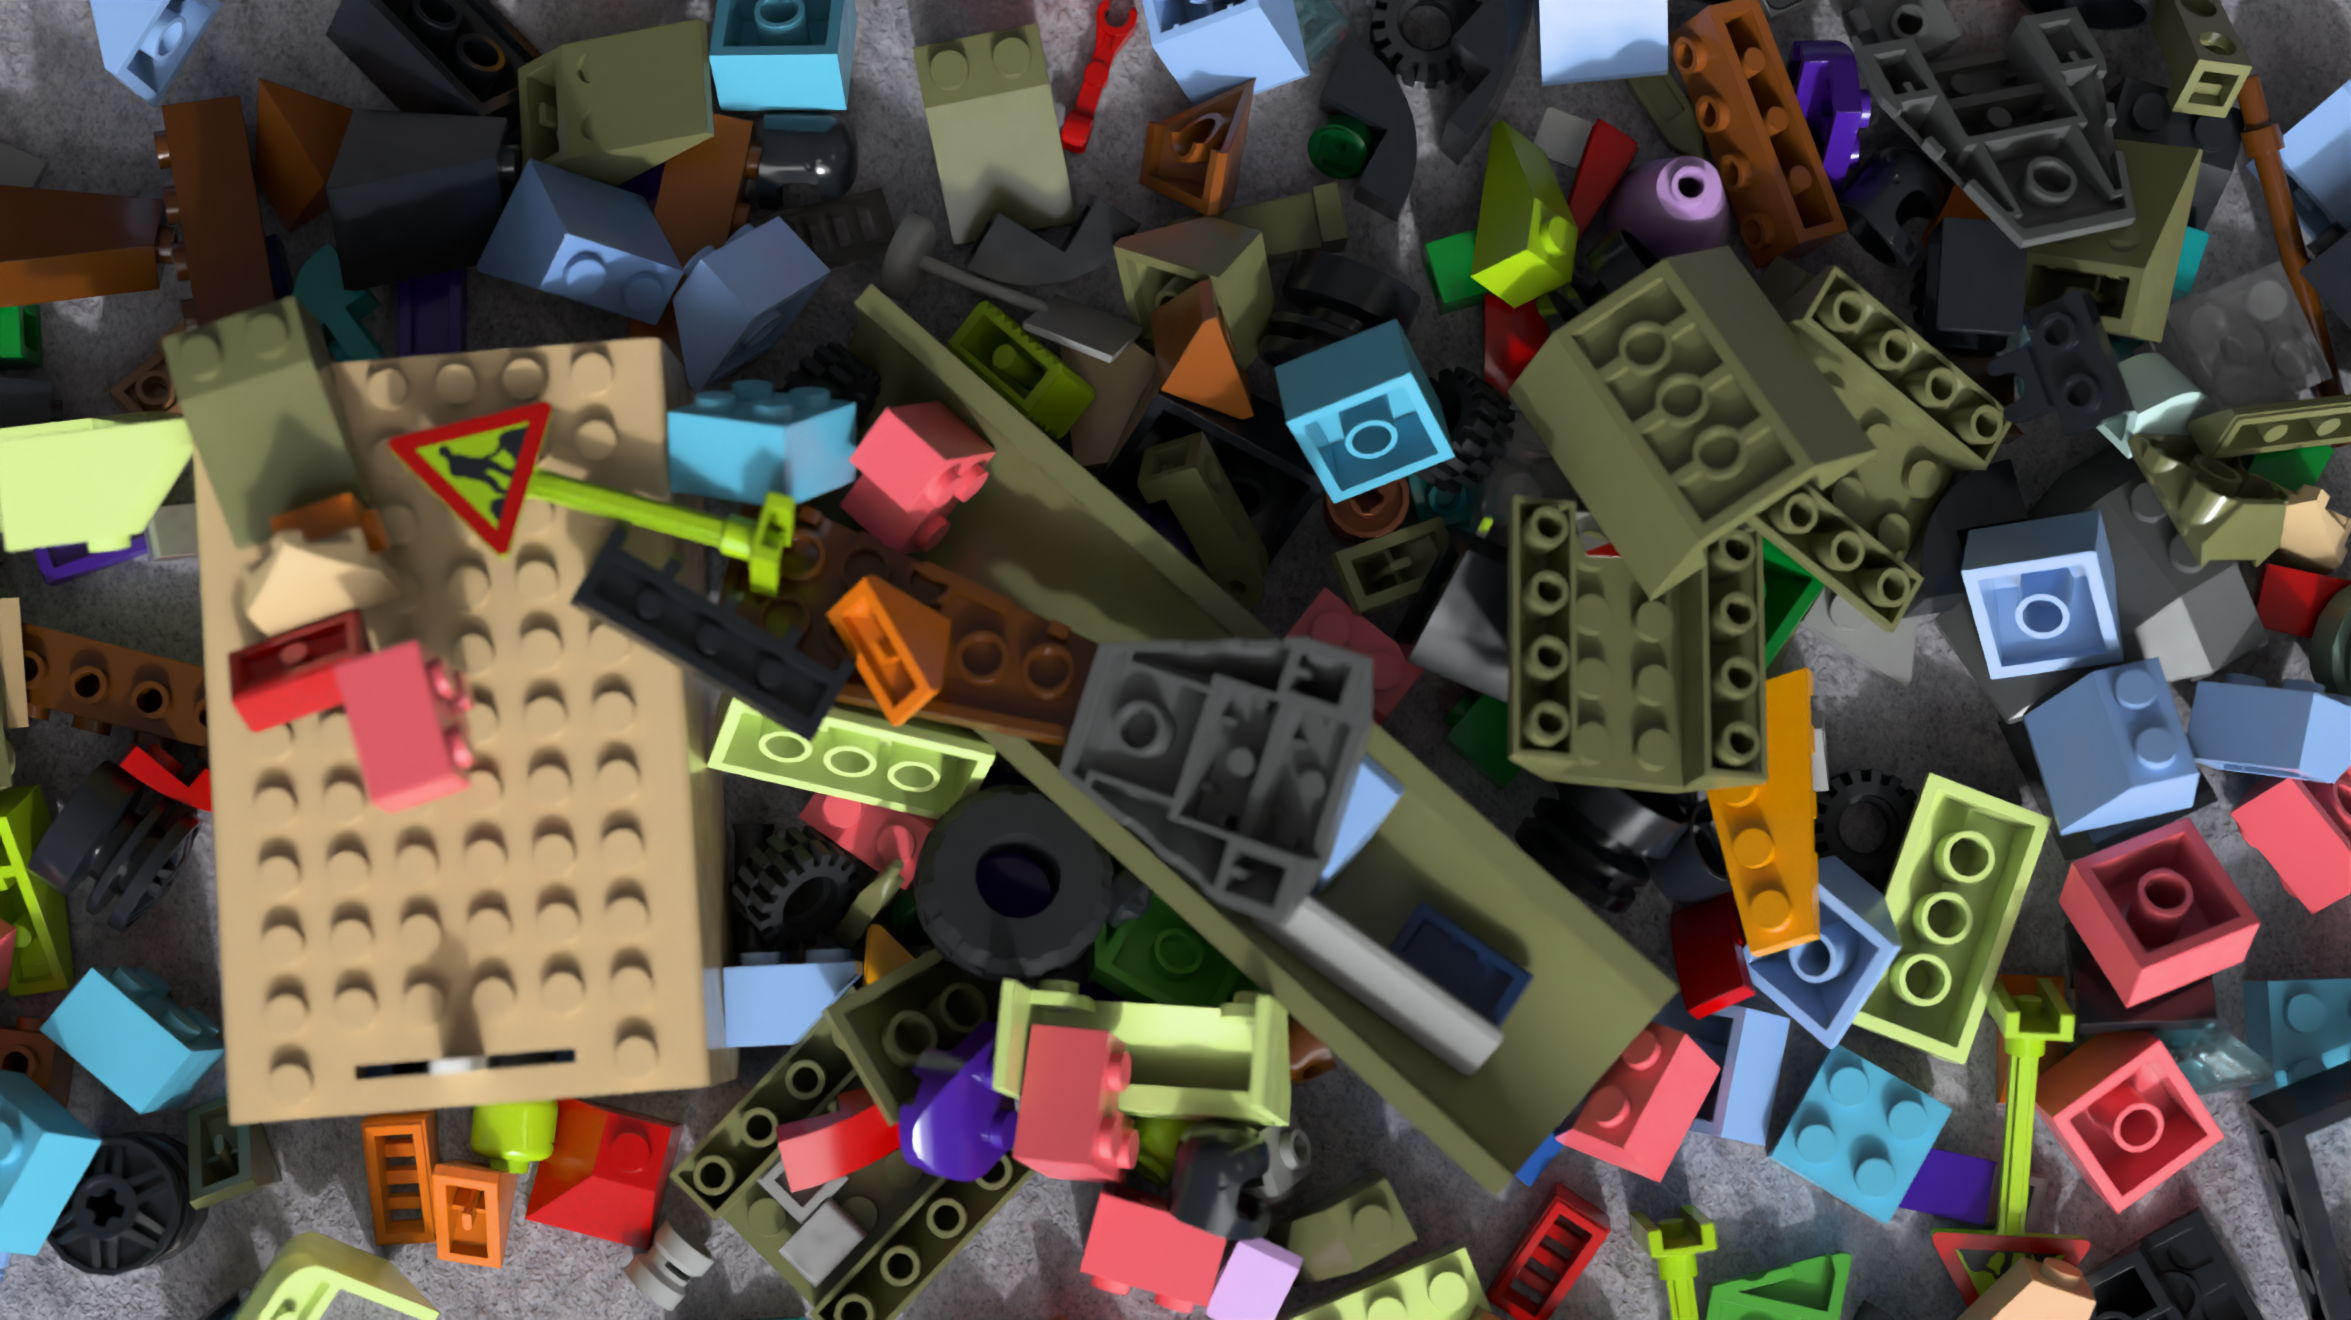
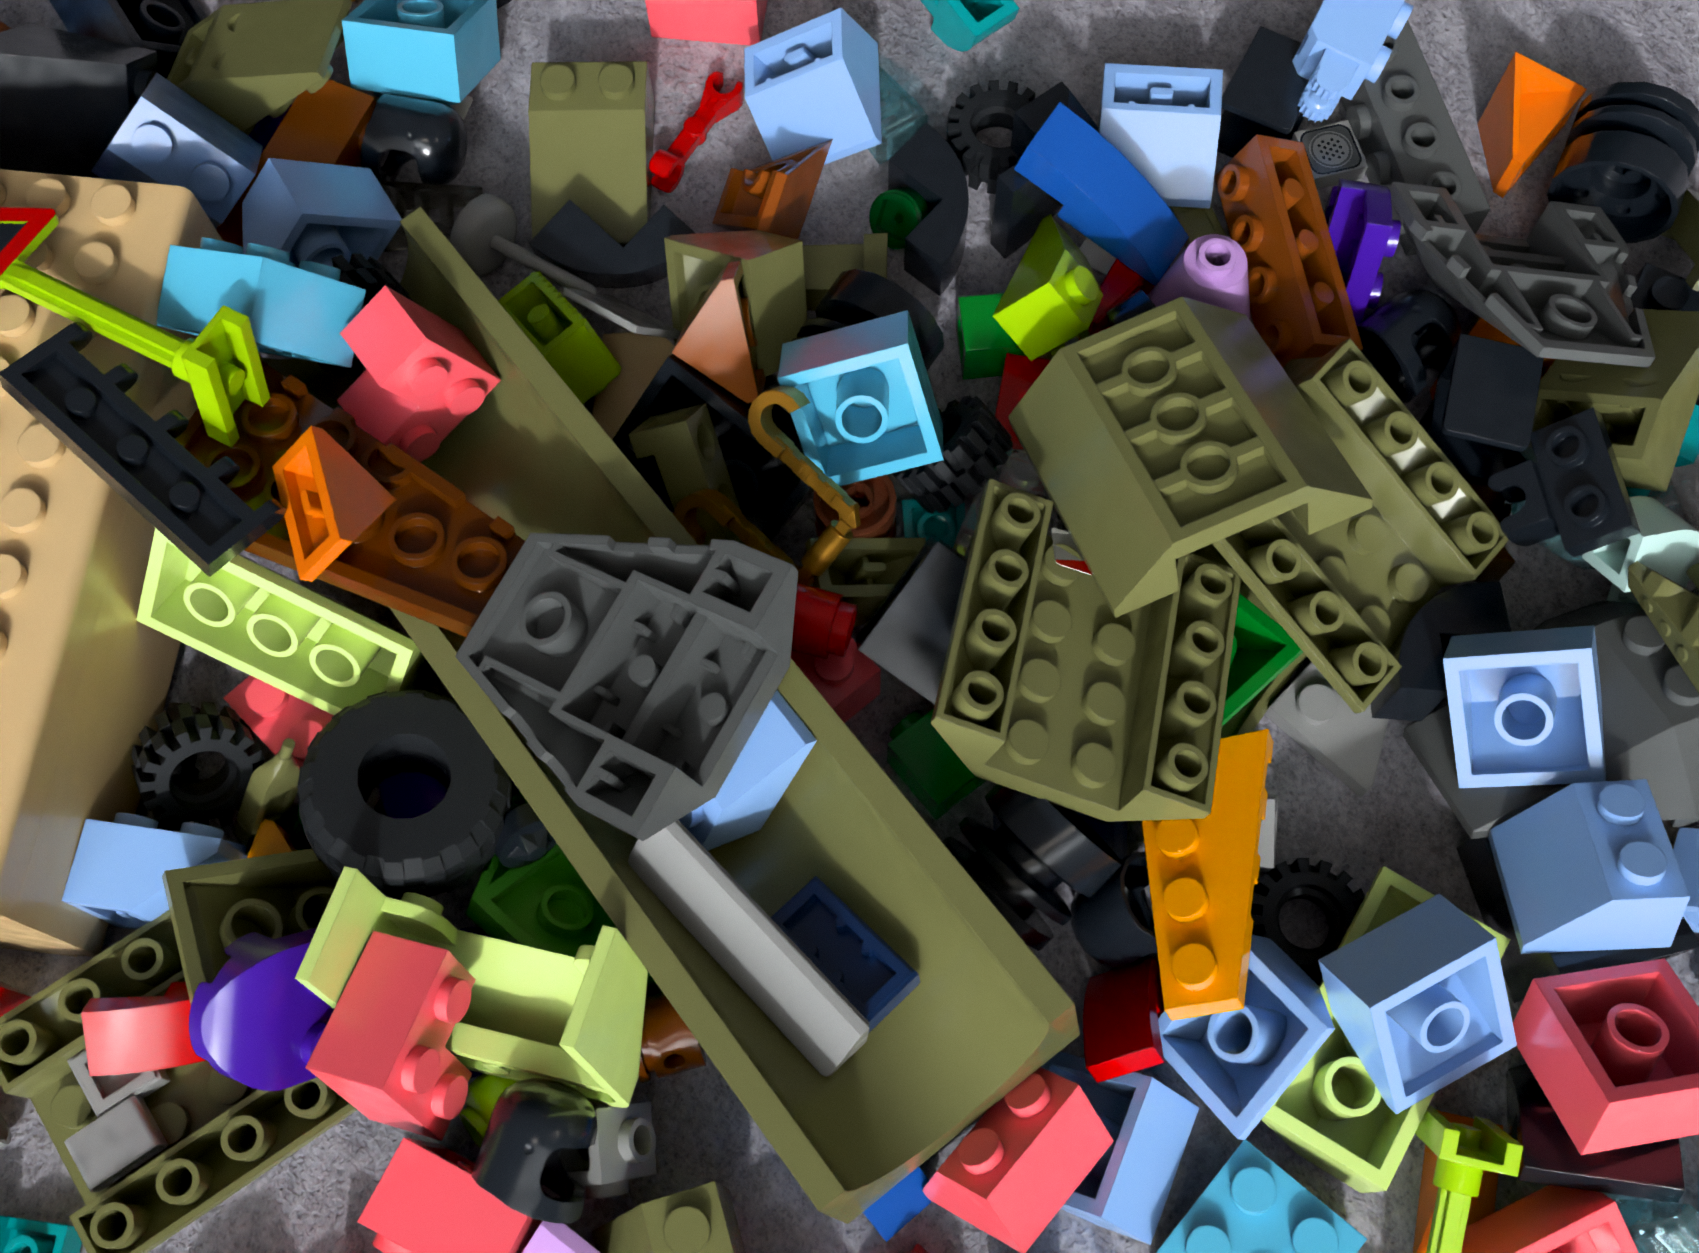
camera: 10 degrees right, 15 degrees down
(1300, 486) = (765, 431): none -> pearl gold piece
(1359, 632) = (822, 622): none -> red brick
(1559, 115) = (1102, 194): none -> blue slope
(1974, 896) = (1421, 1000): none -> light blue slope

